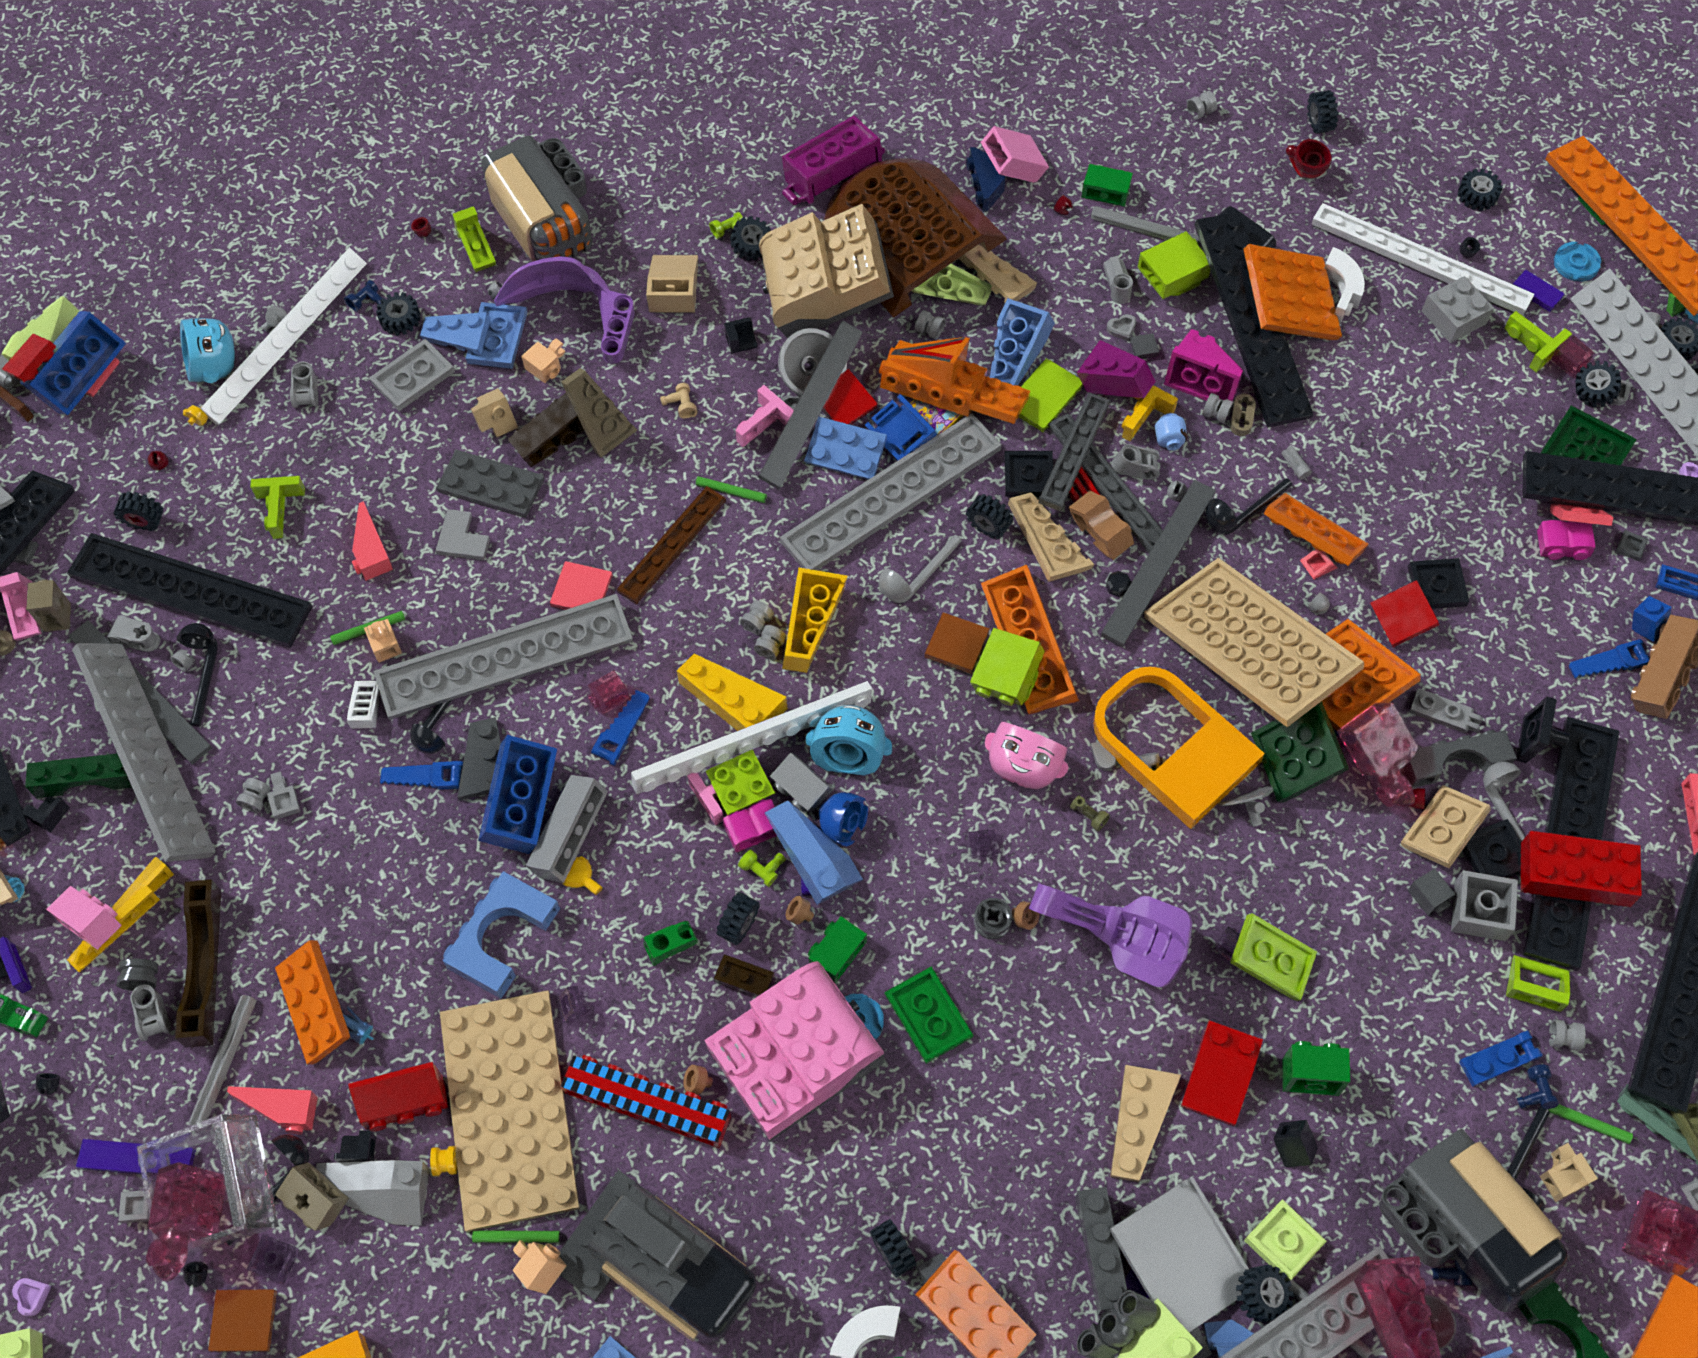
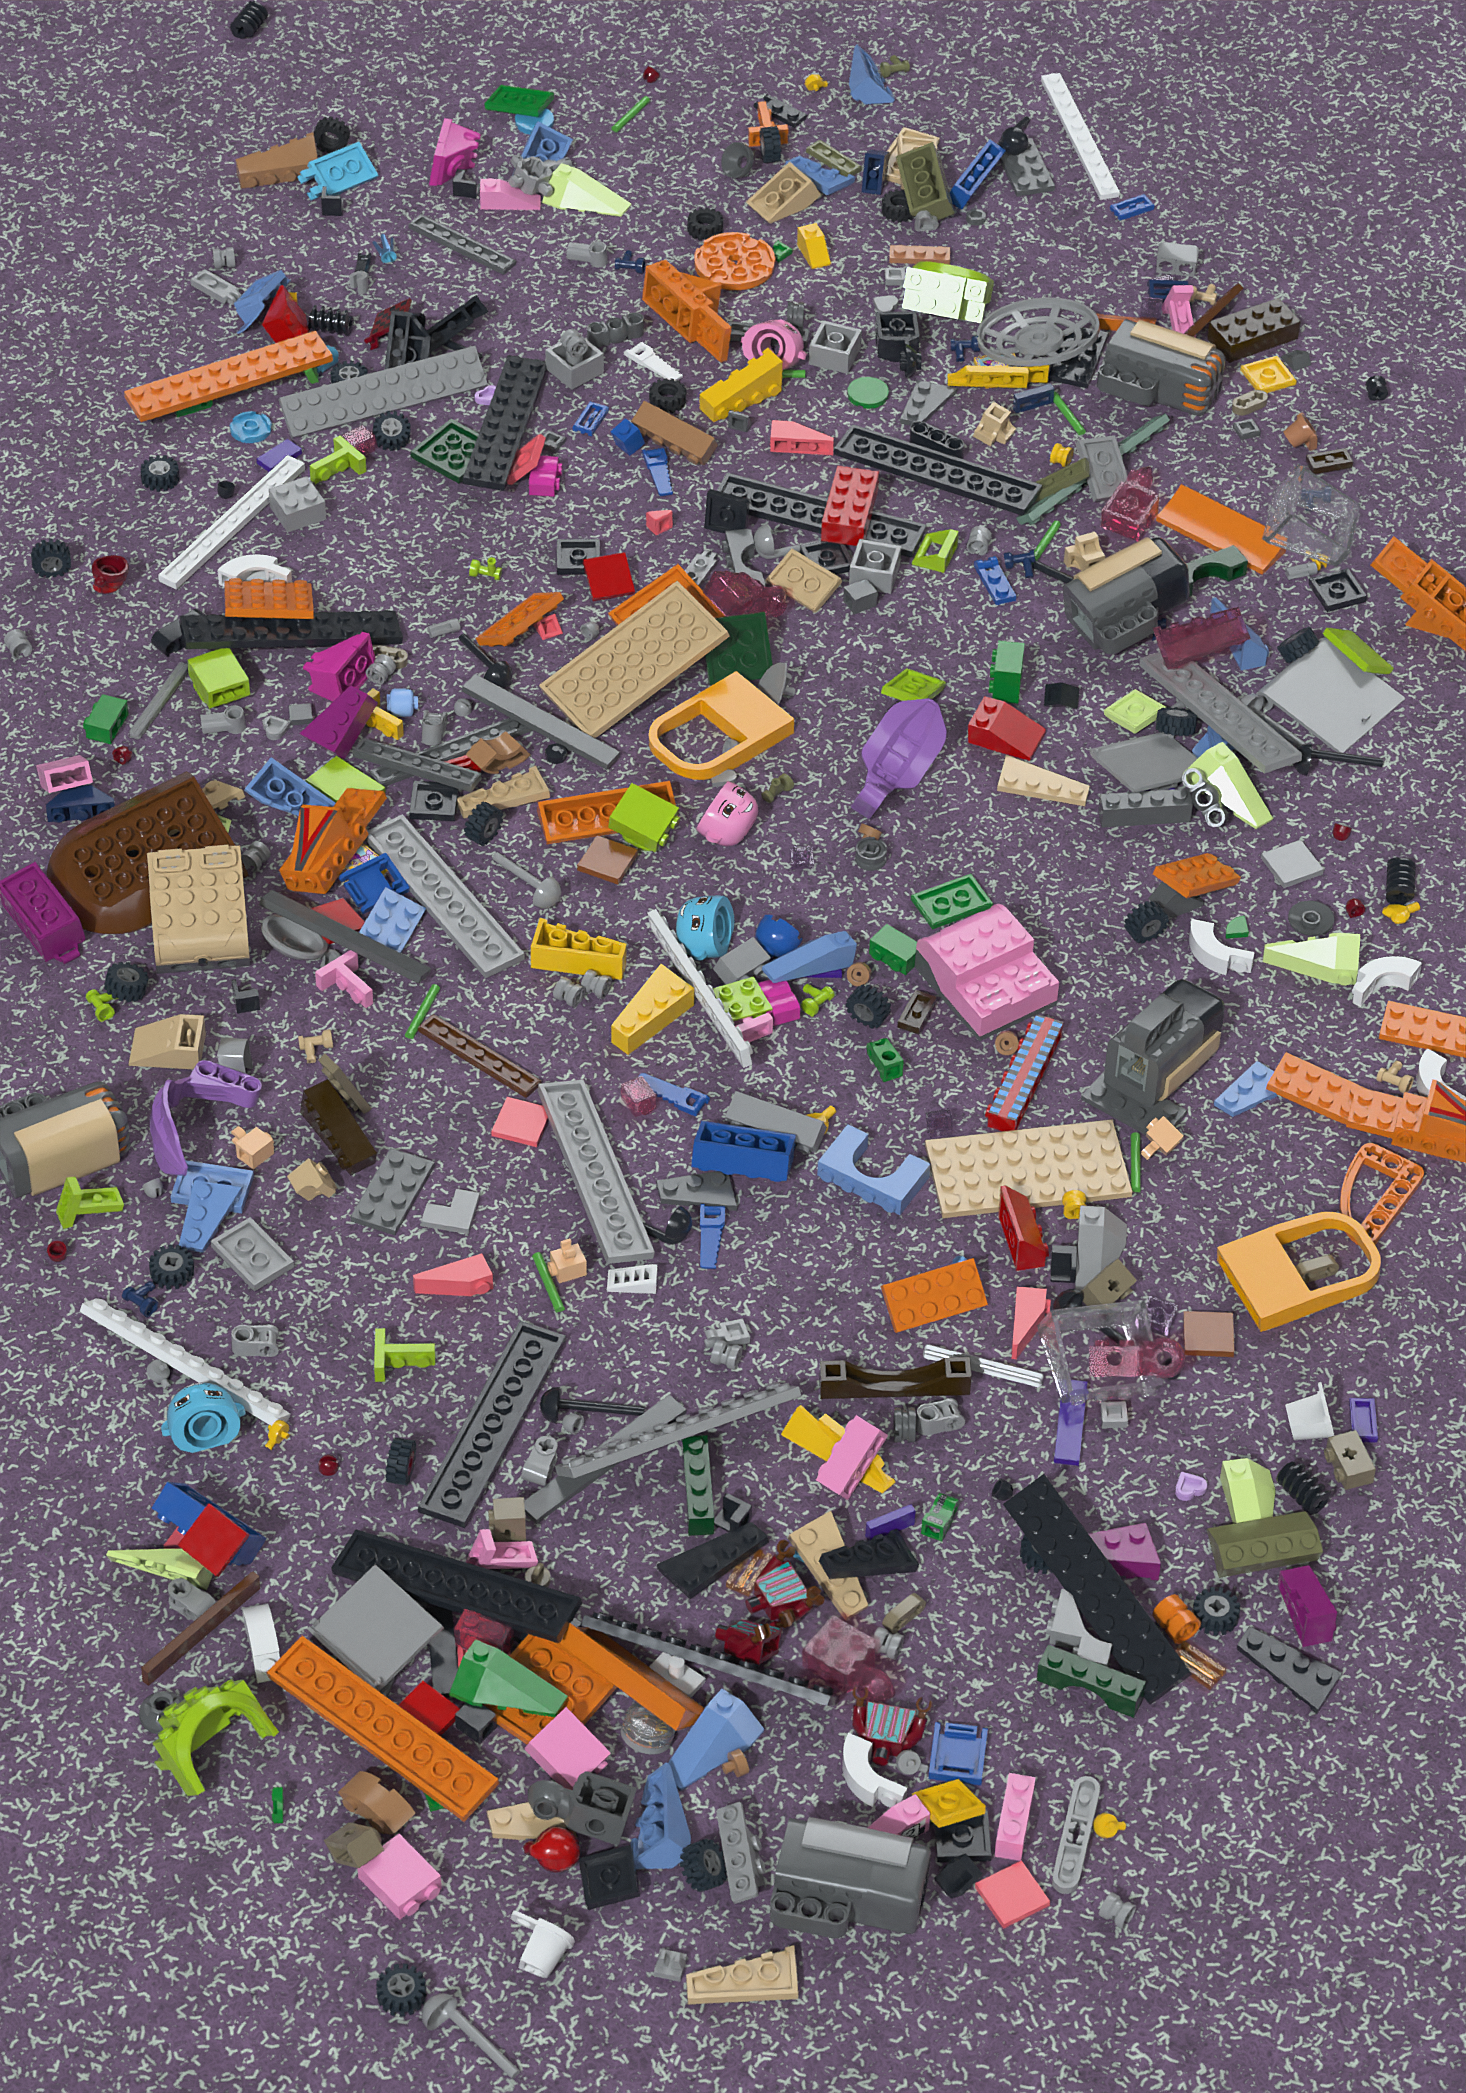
camera: 90 degrees left, 15 degrees down
(643, 317) = (235, 1054): none -> light grey piece
(1396, 485) = (476, 569): none -> lime piece
(1515, 663) = (659, 521): none -> coral slope

